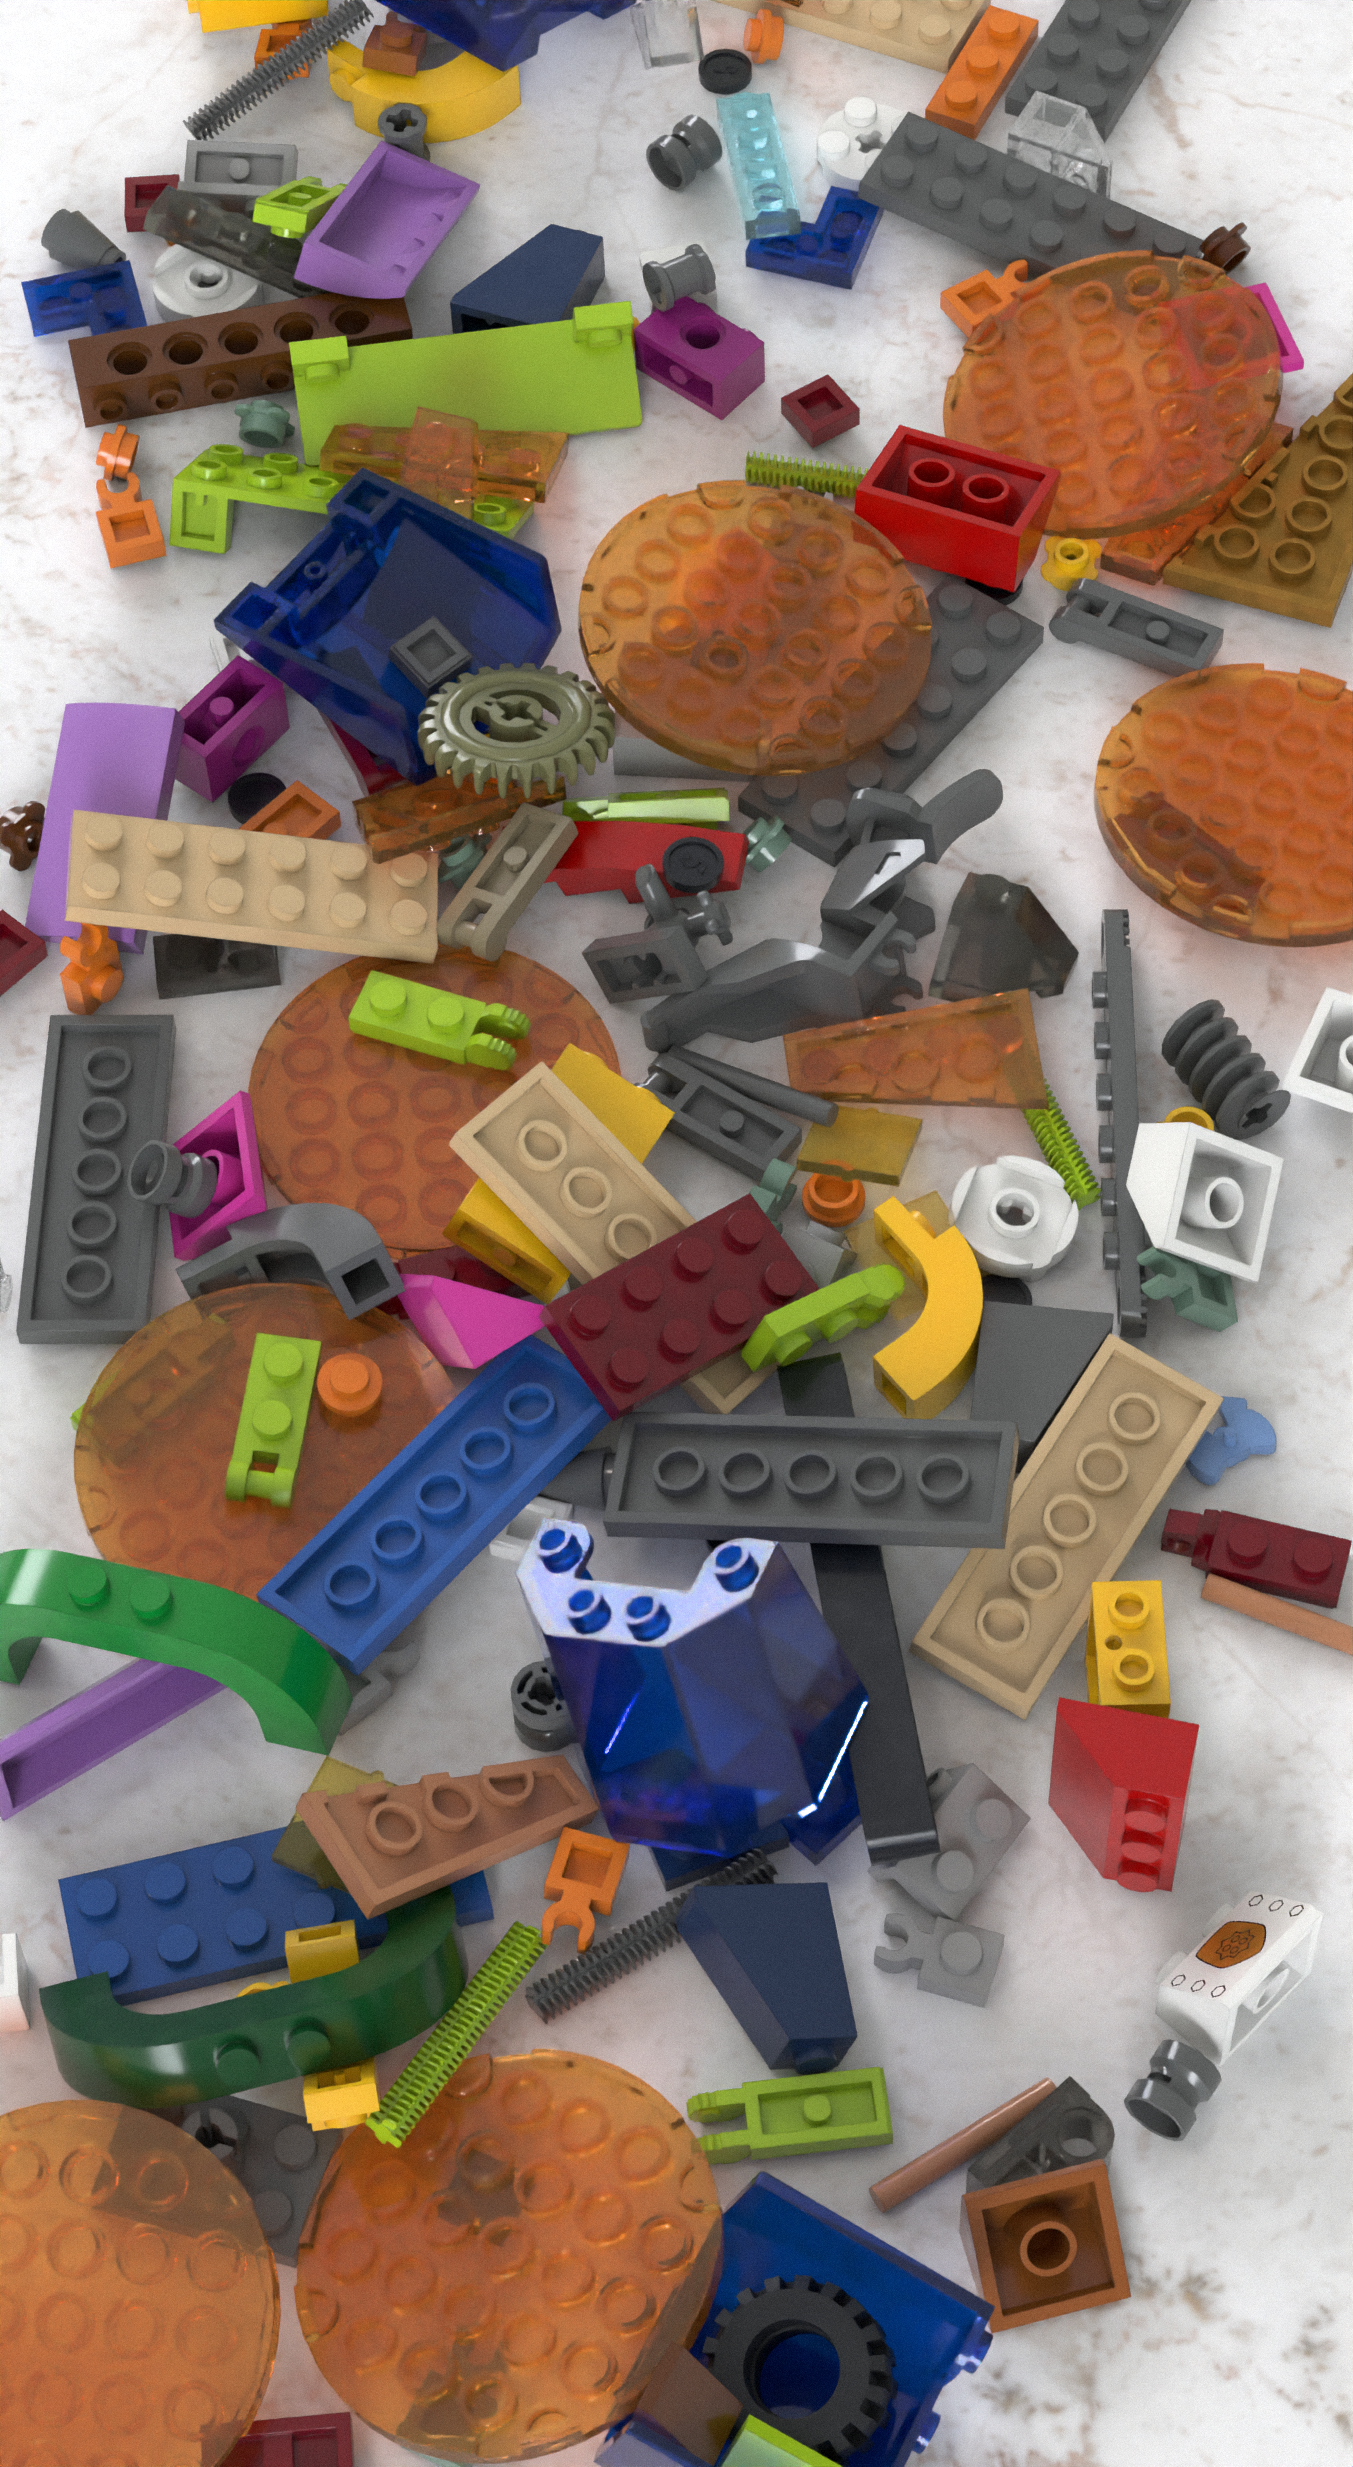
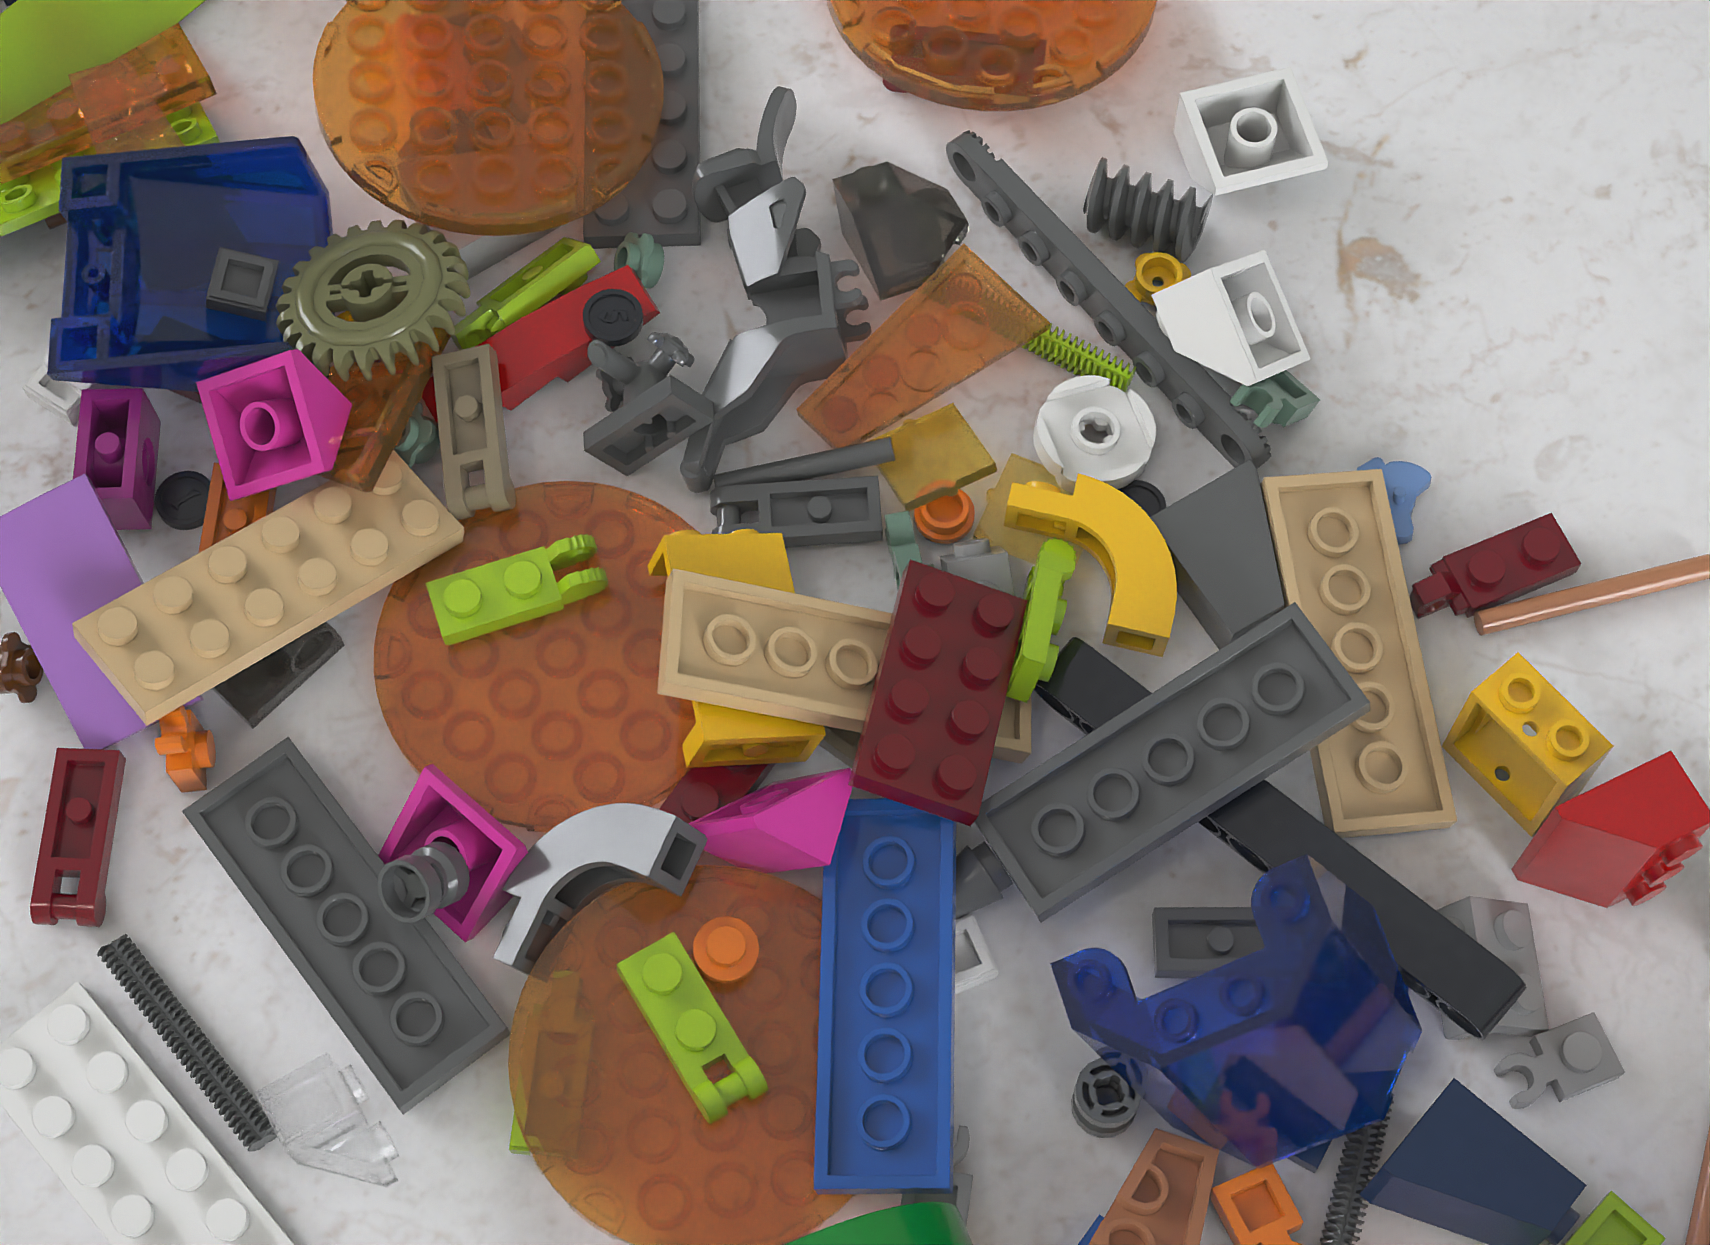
camera: 40 degrees left, 10 degrees up
(354, 767) = (273, 422): none -> dark pink slope

